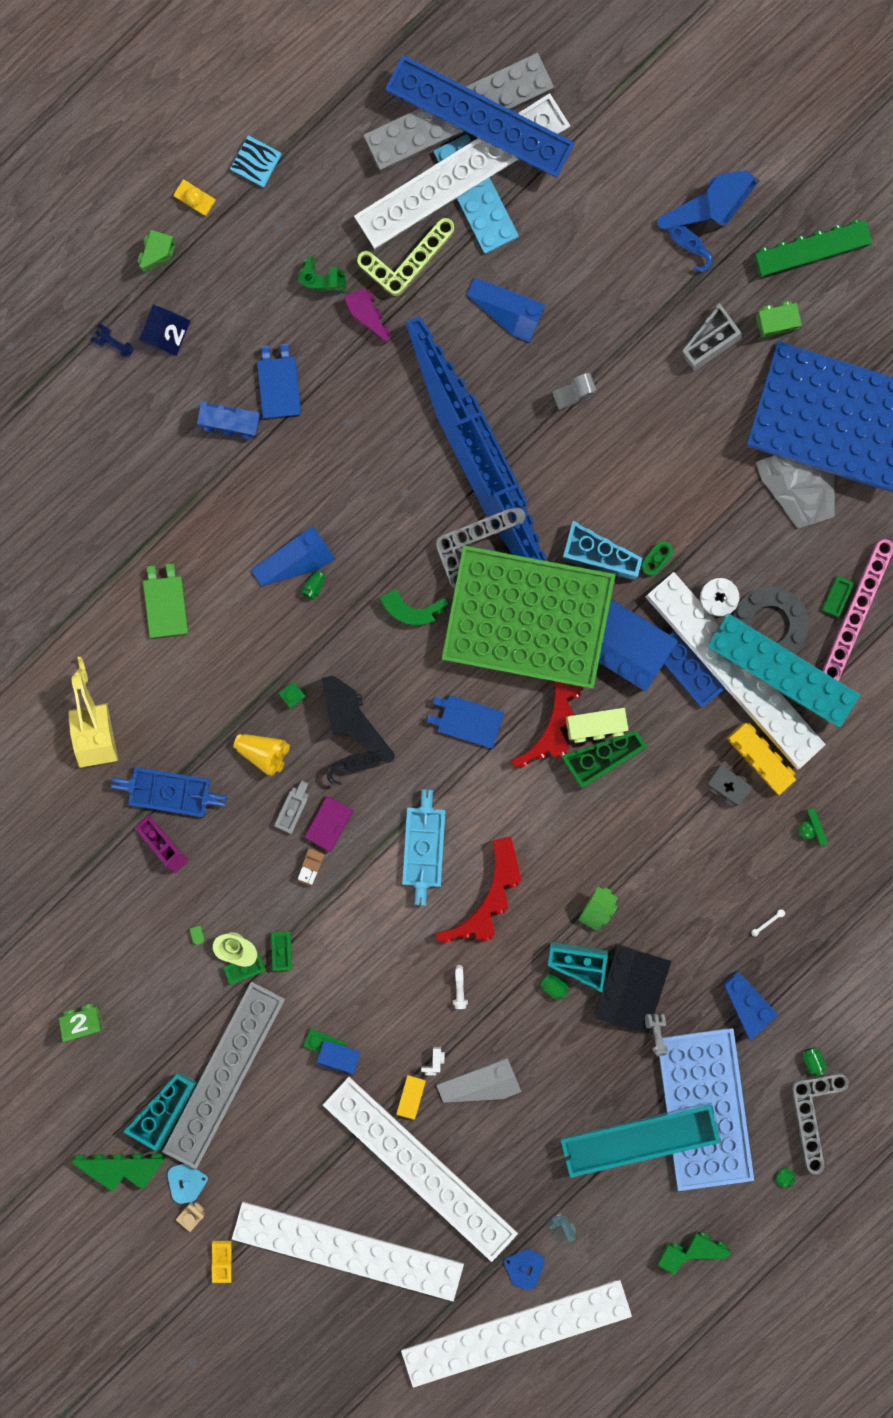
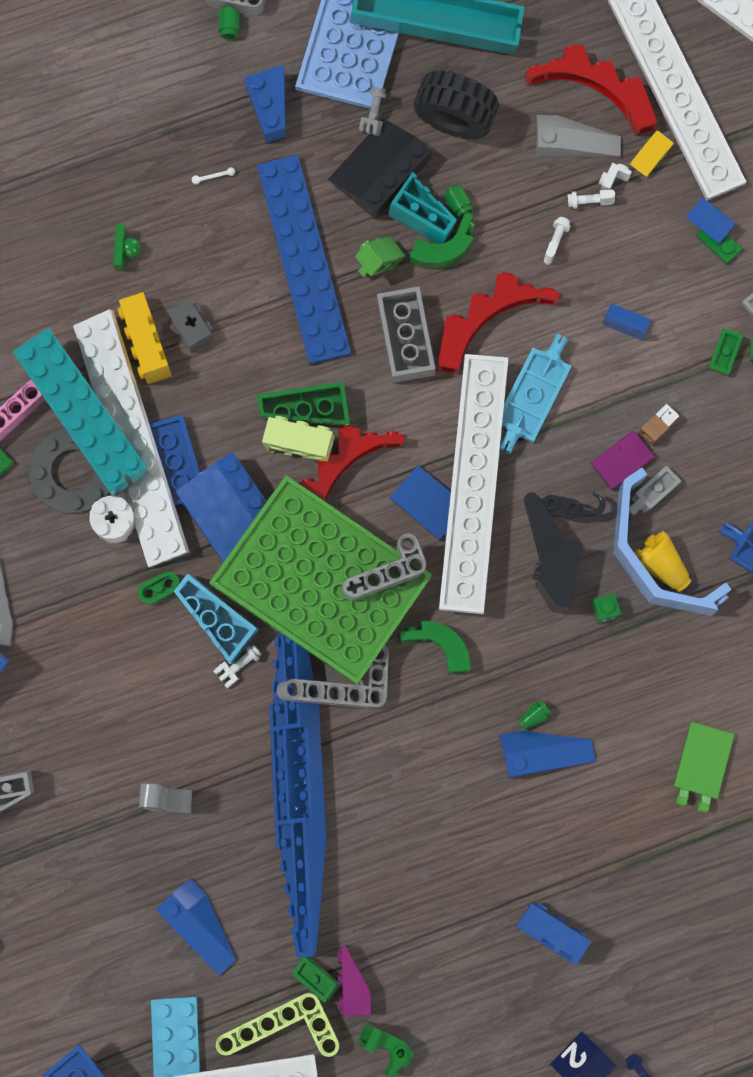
camera: 160 degrees left, 10 degrees down
(208, 739) = (638, 573): none -> light blue panel
(278, 384) = (482, 950): blue tile -> none
(372, 942) = (626, 321): none -> blue panel
(397, 306) = (315, 979): none -> green plate
(436, 1040) = (606, 197): none -> white hinge
(440, 750) = (474, 484): none -> white plate
(451, 1140) = (602, 77): none -> red arch
(480, 640) = (382, 574): none -> light grey beam
(544, 936) = (443, 255): none -> green arch
(548, 852) = (405, 334): none -> light grey brick
(558, 538) = (252, 653): none -> white hinge
(589, 1062) = (456, 104): none -> black tyre
(661, 883) = (303, 260): none -> blue plate

